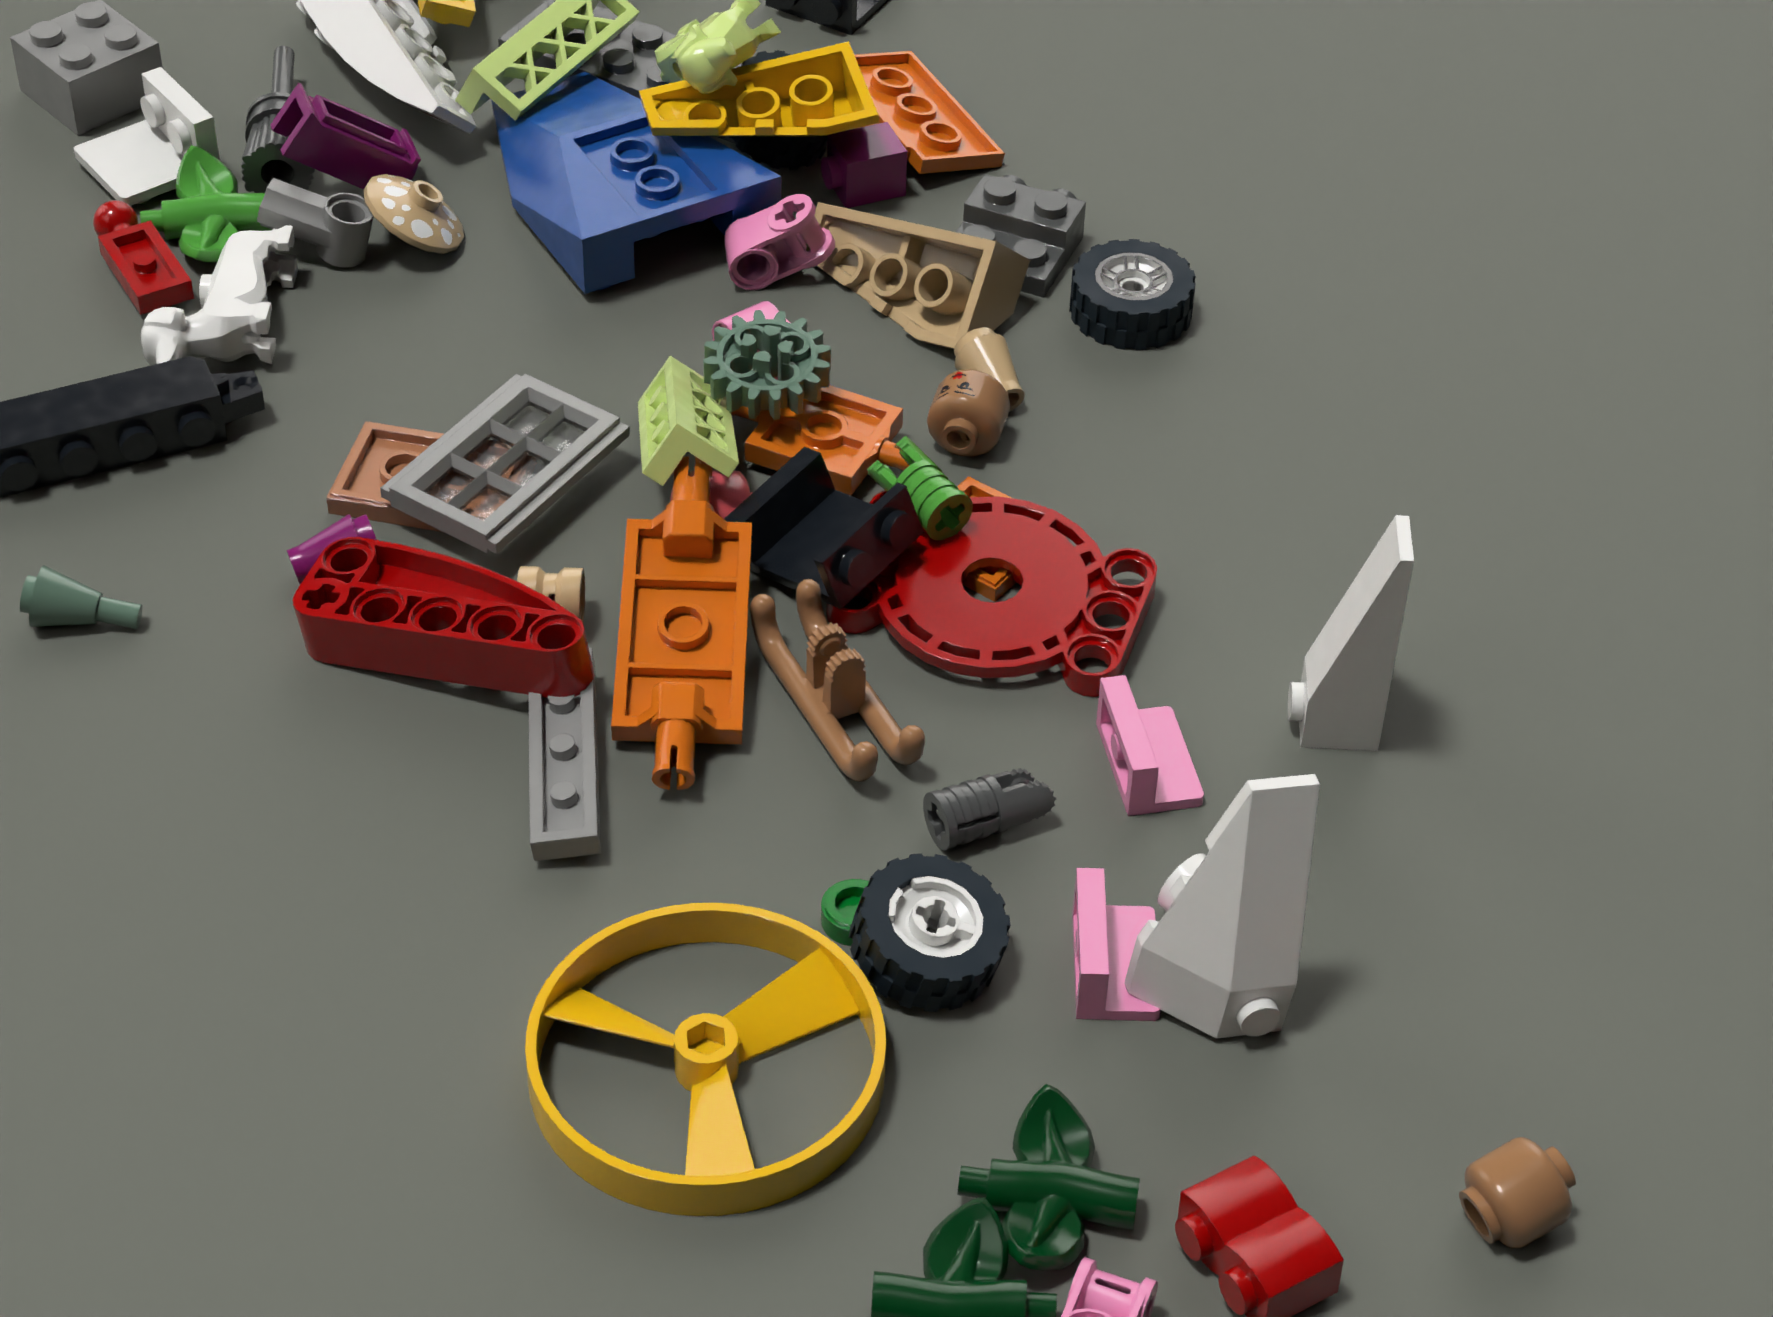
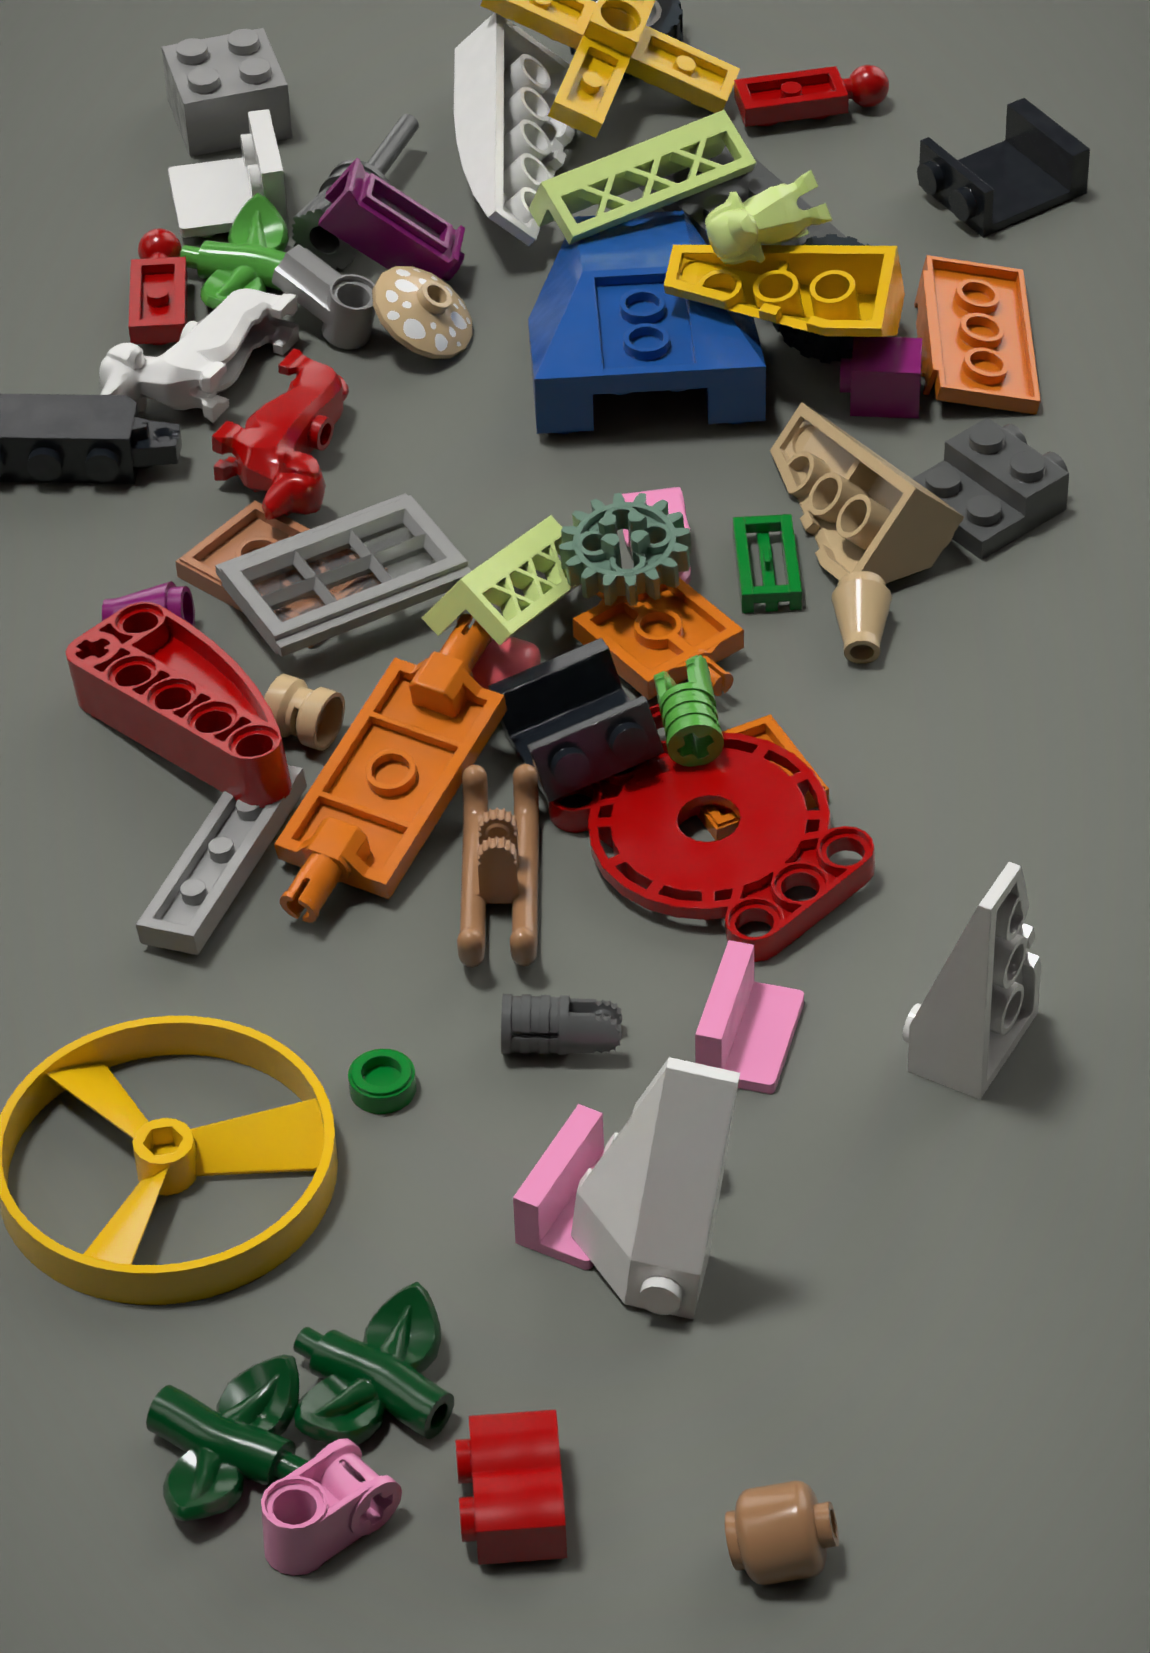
camera: 30 degrees right, 0 degrees up
(357, 354) = (281, 435): none -> red animal
(774, 243) = (736, 433): bright pink piece -> none
(860, 353) = (769, 592): none -> green tile
(921, 965) = (425, 1150): black wheel -> none
(968, 408) = (803, 652): medium nougat head -> none
(1132, 294) = (1059, 580): black wheel -> none

